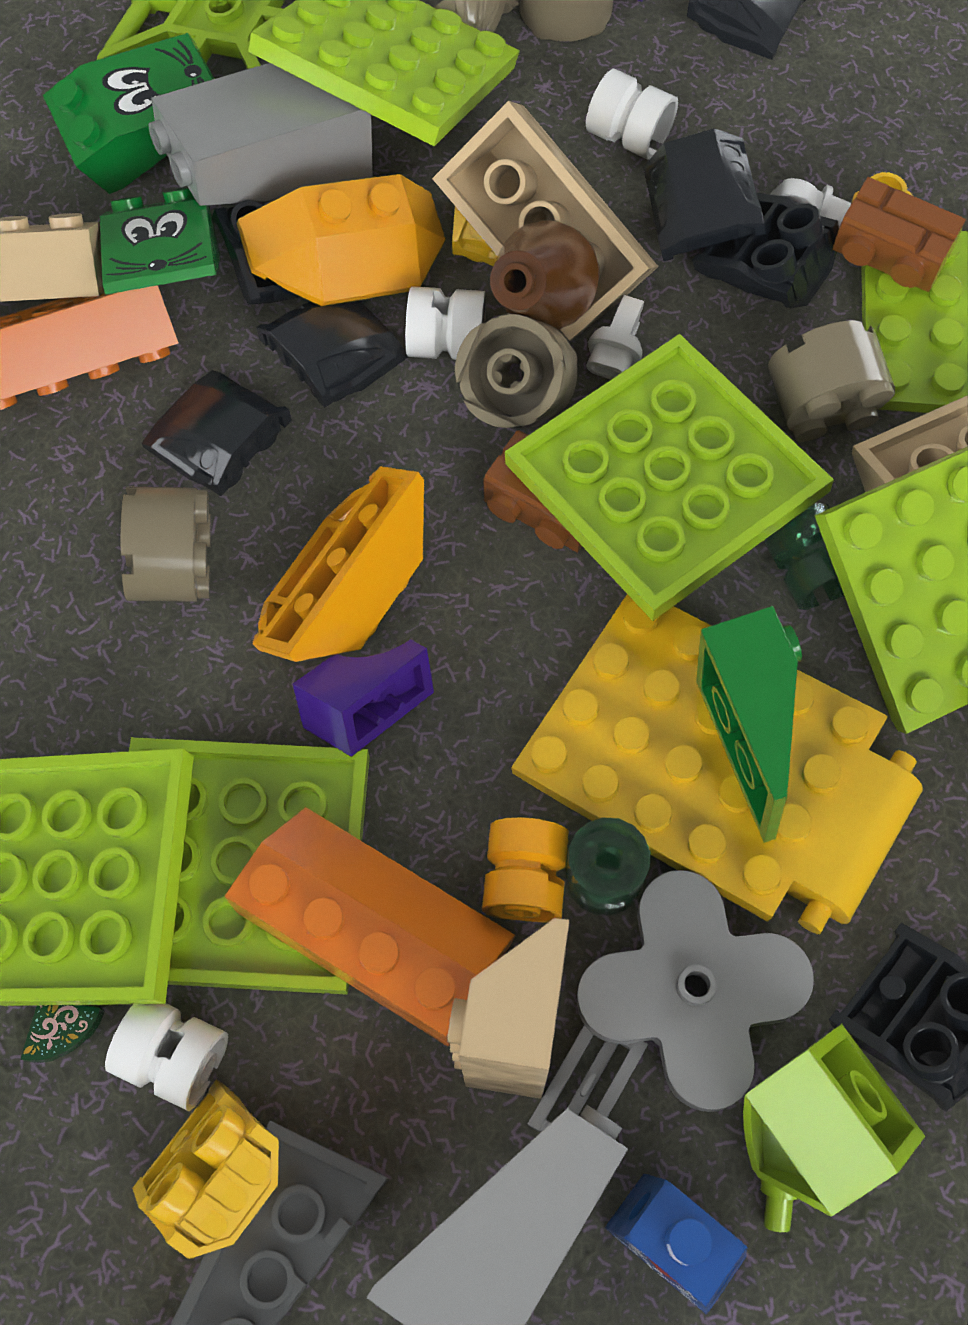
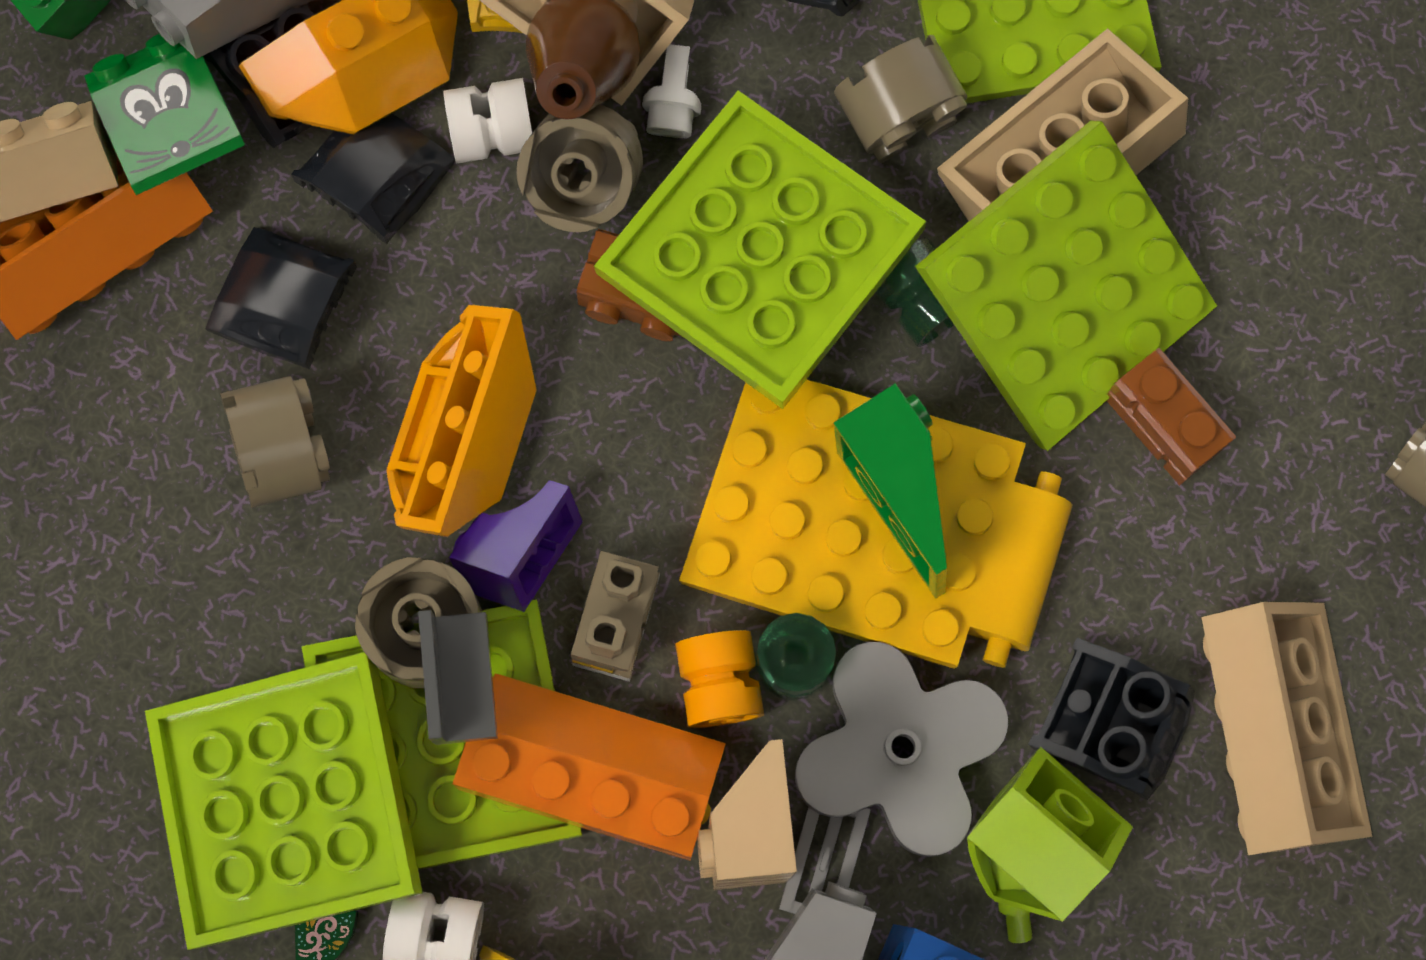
camera: 20 degrees left, 10 degrees up
(211, 740) = (392, 600): none -> dark tan brick
(255, 787) = (457, 677): none -> dark grey panel
(442, 770) = (614, 616): none -> dark tan hips

